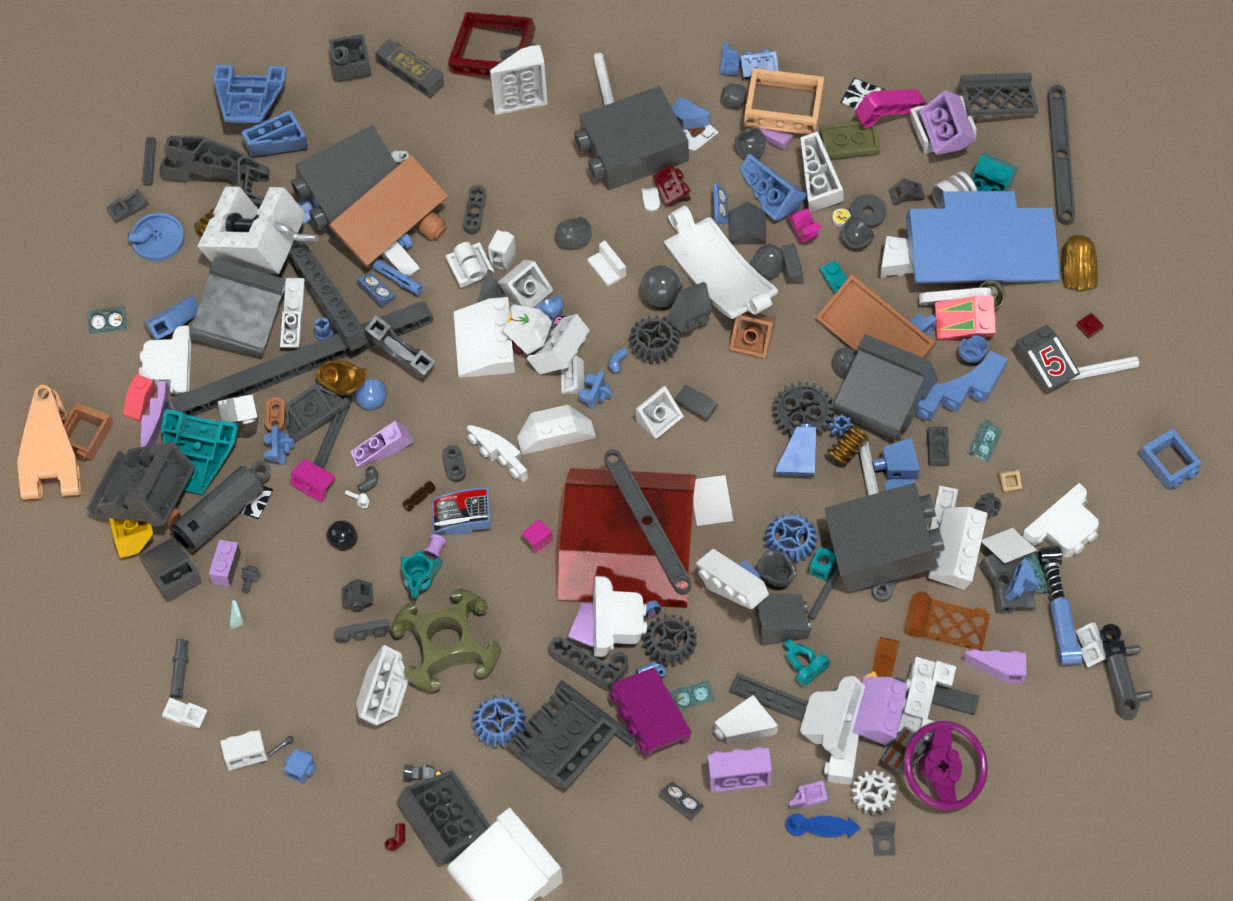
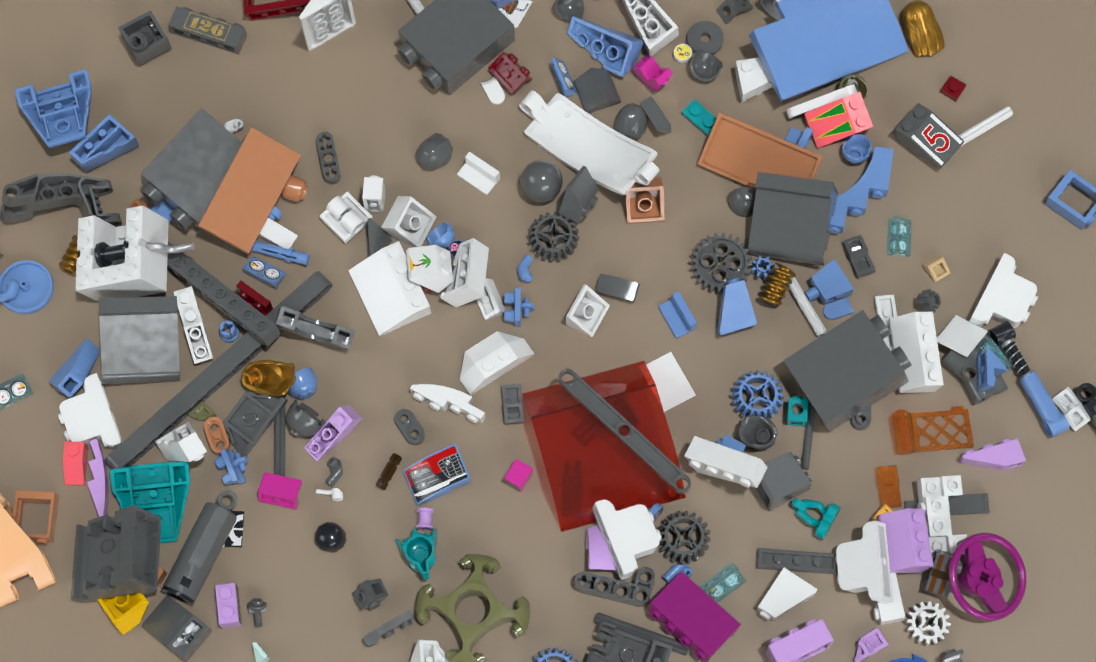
camera: 20 degrees left, 10 degrees up
(269, 391) = (201, 412): none -> olive tile
(356, 305) = (254, 298): none -> dark red bracket
(358, 425) = (303, 420): none -> dark grey cylinder
(557, 473) = (512, 403): none -> dark grey slope
(744, 445) = (678, 316): none -> medium blue panel

